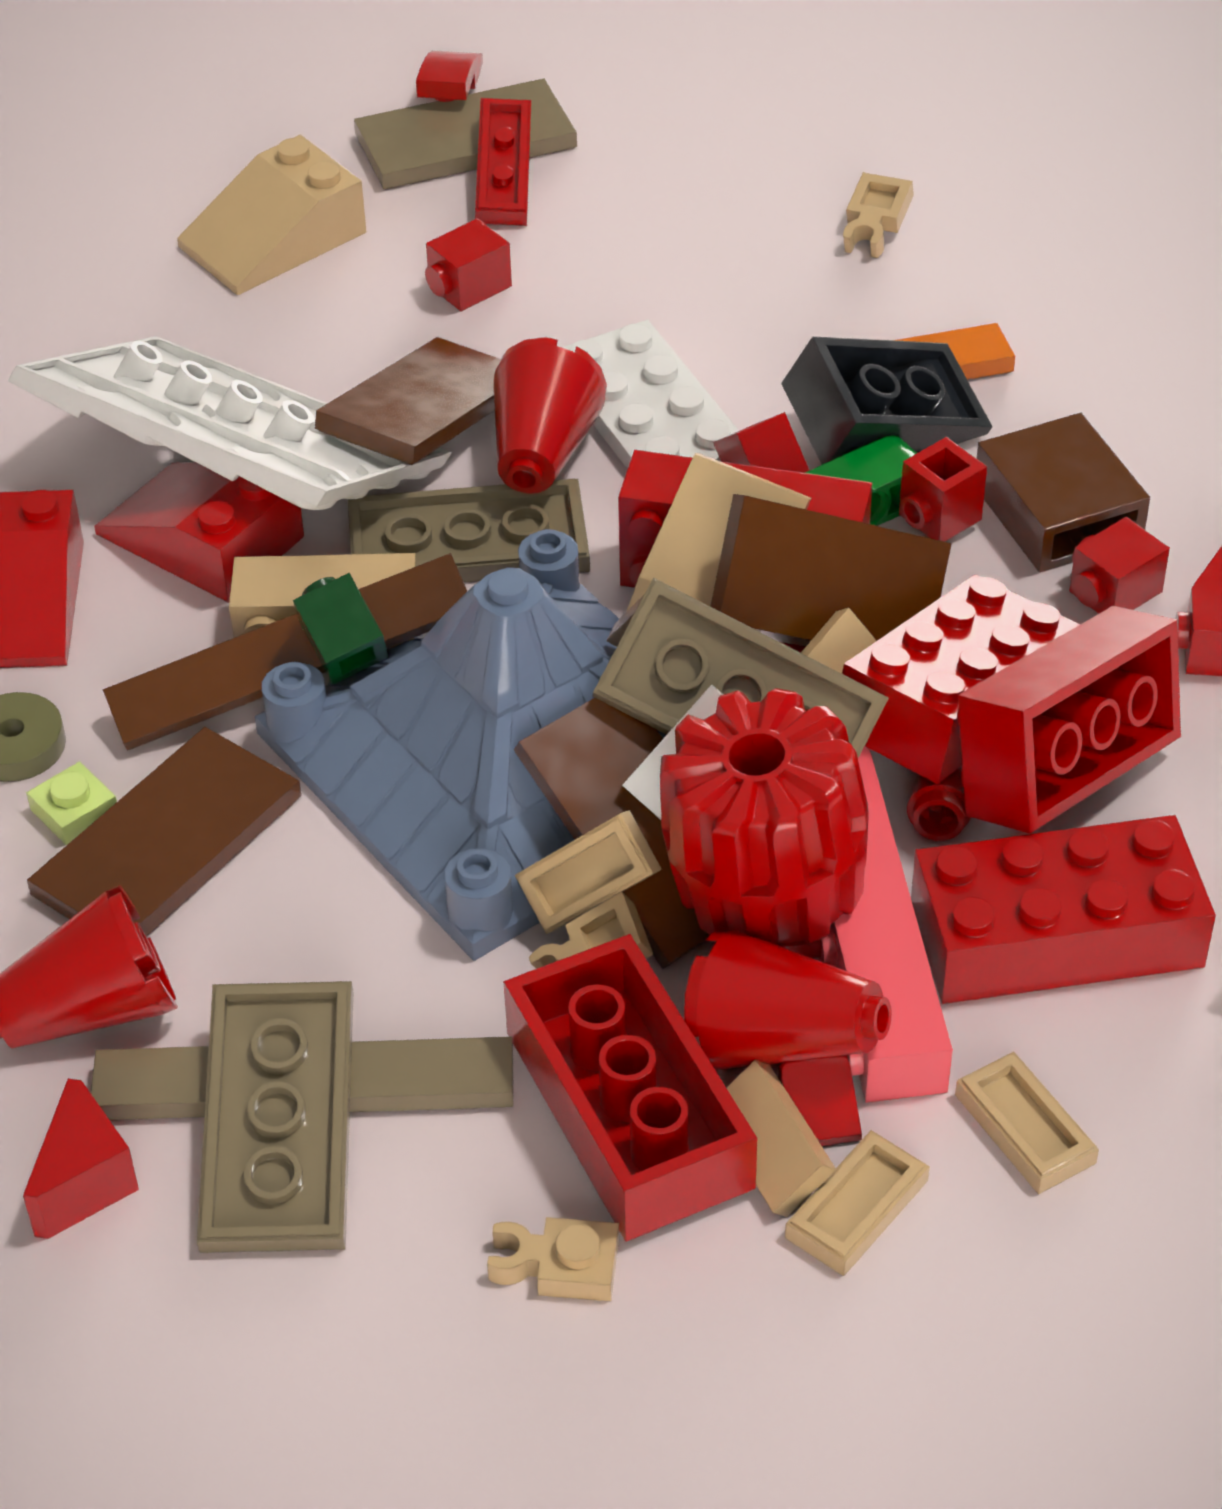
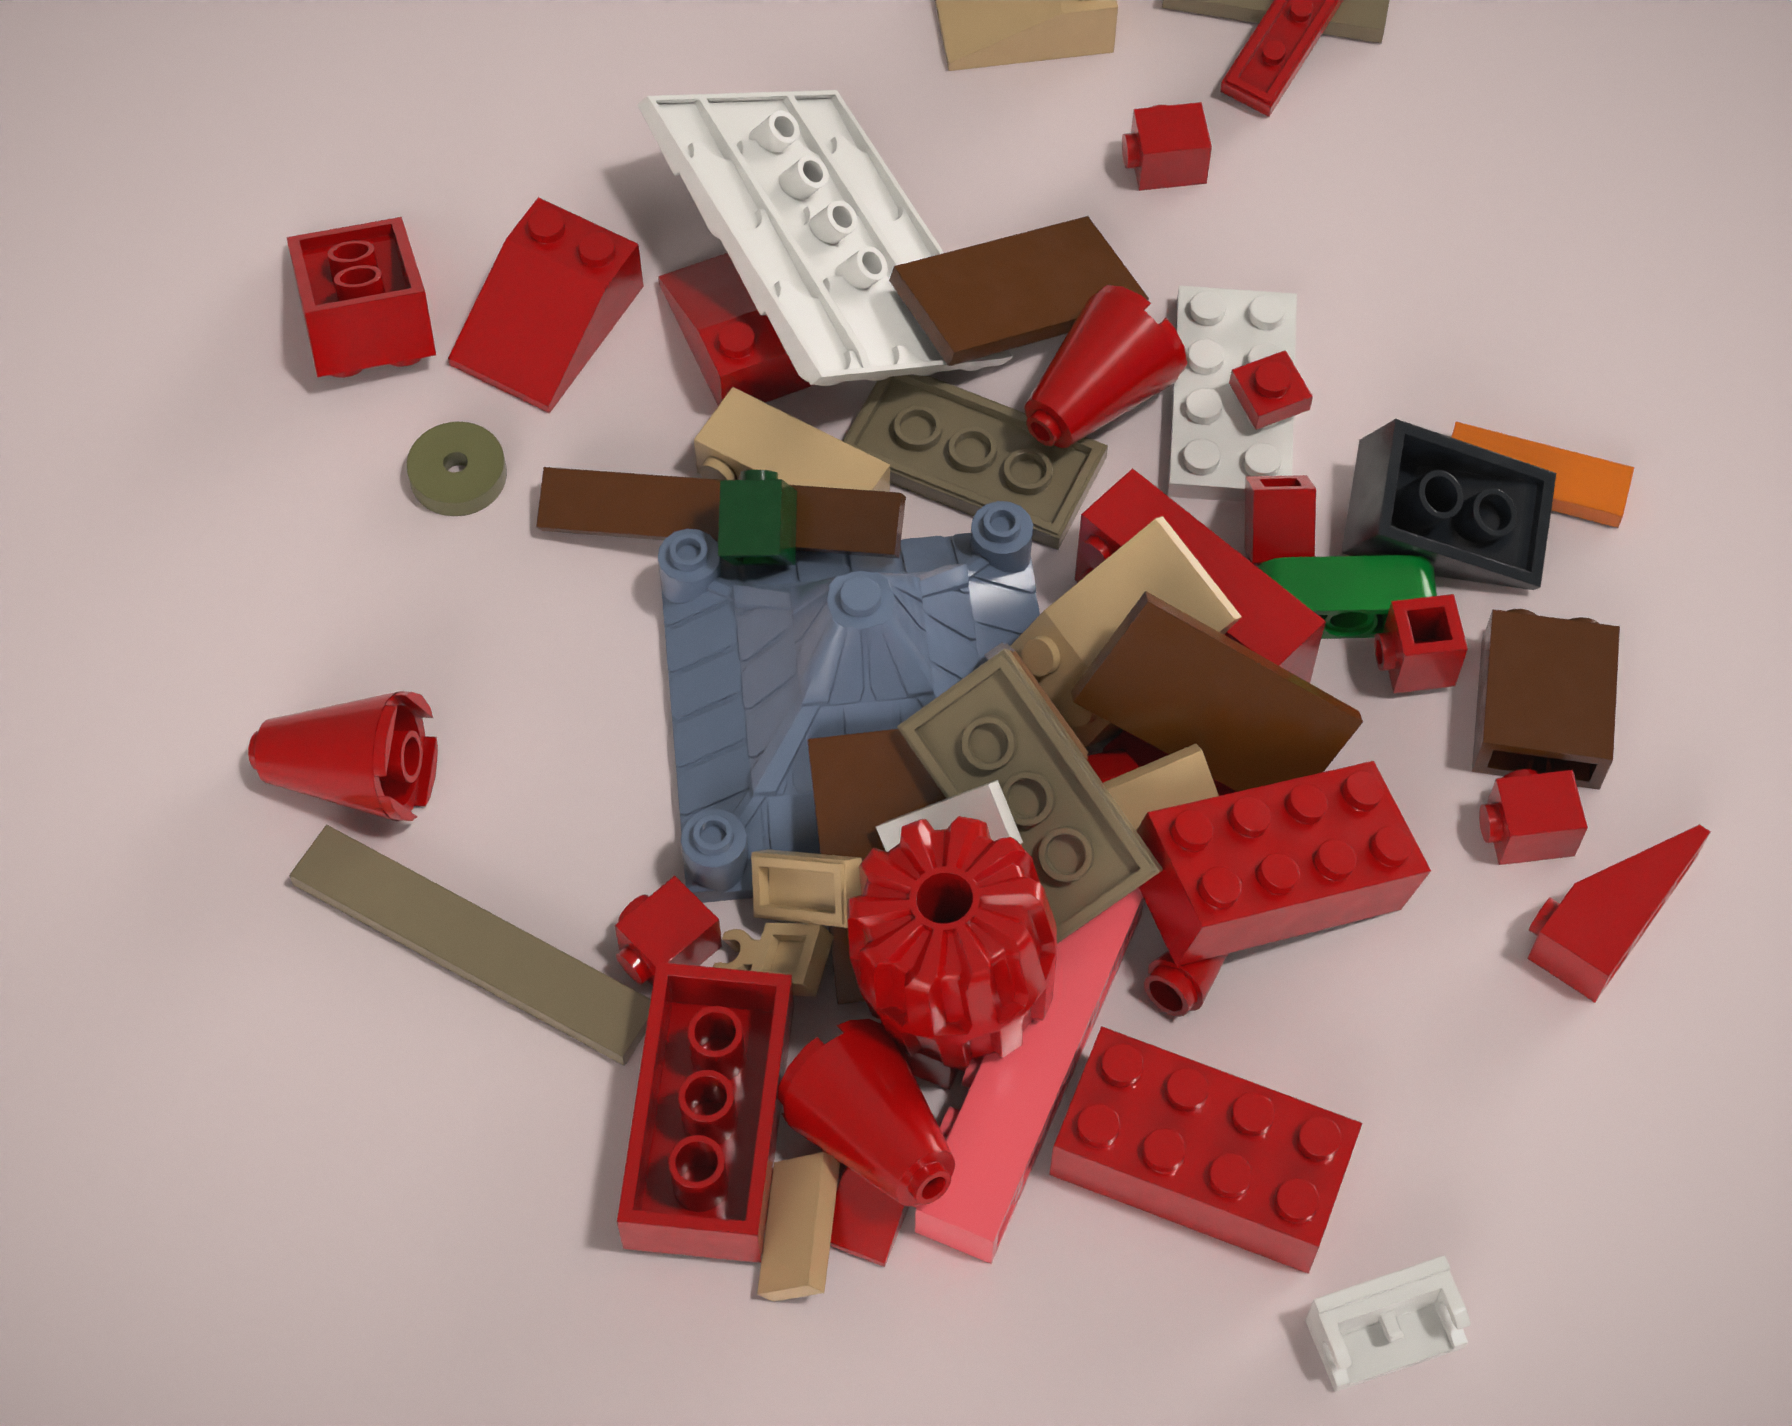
camera: 30 degrees right, 15 degrees up
(70, 801) = (462, 563): yellowish green plate -> none
(79, 1166) = (245, 926): red slope -> none
(169, 831) = (517, 639): reddish brown tile -> none
(276, 1118) = (422, 971): dark tan tile -> none
(473, 976) = (666, 929): none -> red brick
(568, 1259) = (567, 1237): tan plate -> none
(684, 380) = (1270, 389): none -> red plate
(857, 1202) = (835, 1325): tan tile -> none
(876, 207) = (1612, 267): tan plate -> none
(1026, 1122) = (1031, 1335): tan tile -> none
(1069, 718) = (1334, 972): red brick -> none

